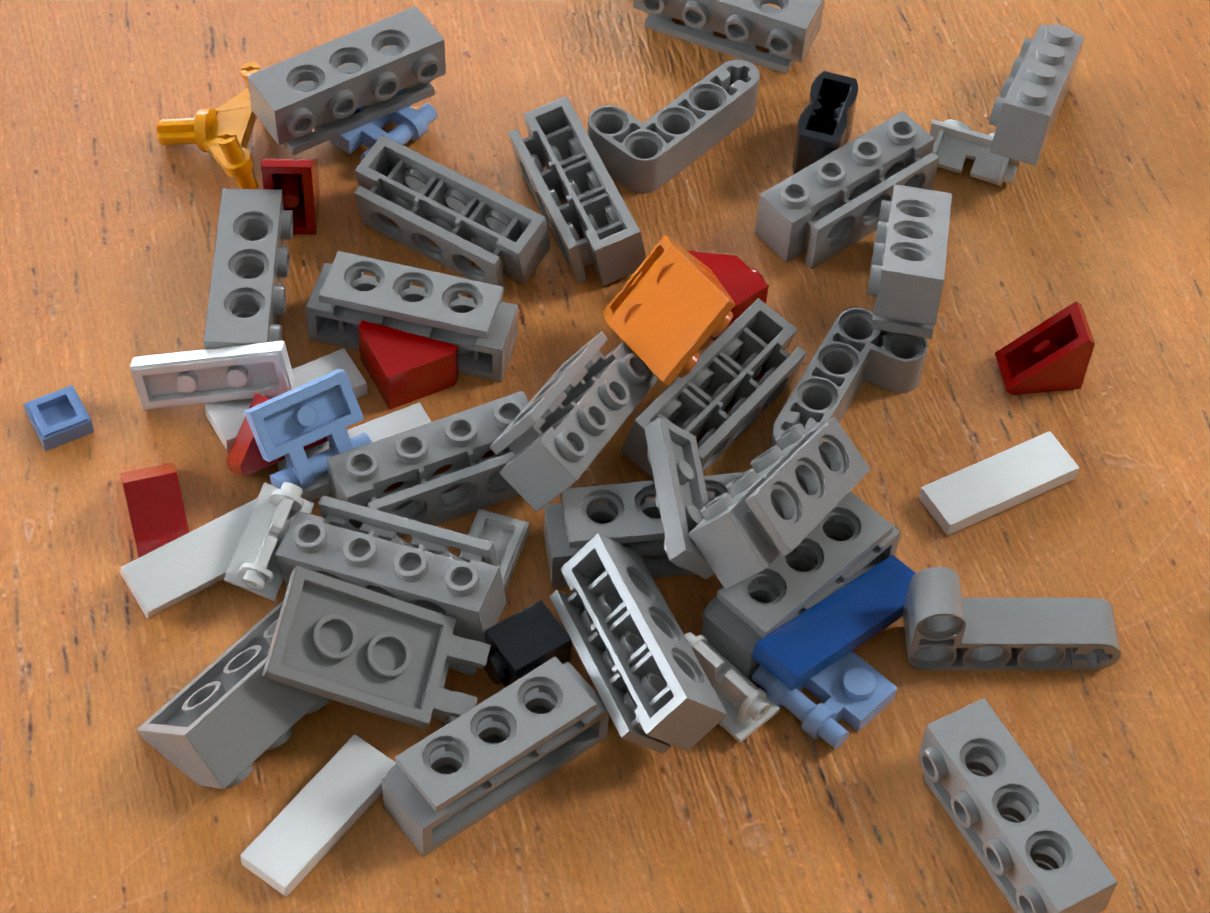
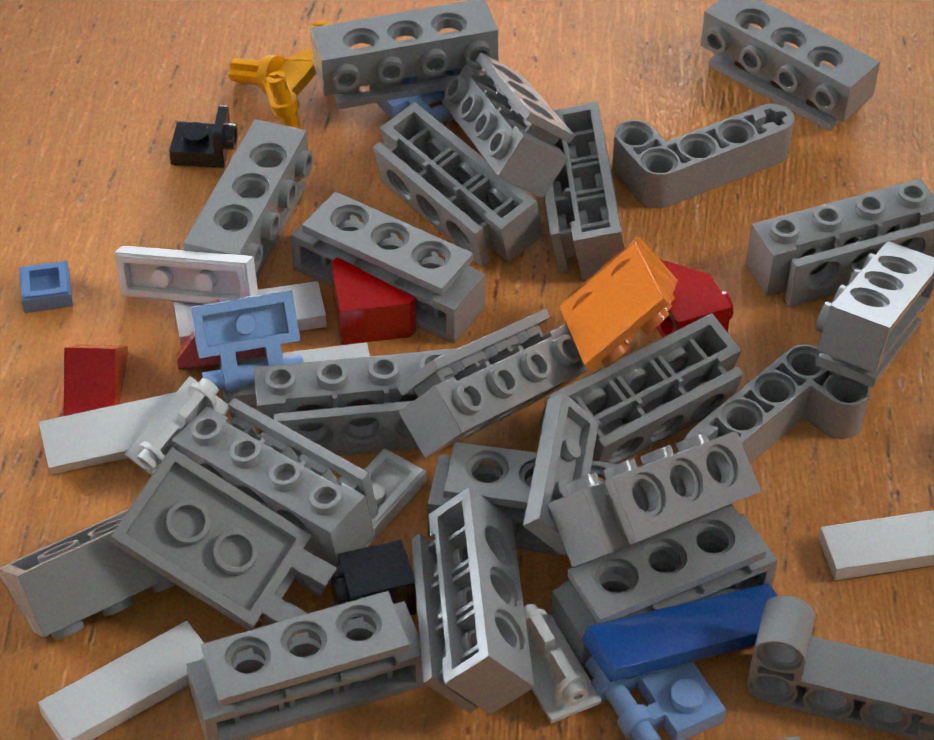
camera: 20 degrees right, 5 degrees down
(162, 221) = (204, 143): none -> black bracket
(299, 186) = (328, 136): red slope -> none
(485, 138) = (509, 124): none -> light grey brick
(826, 119) = (846, 170): black brick -> none

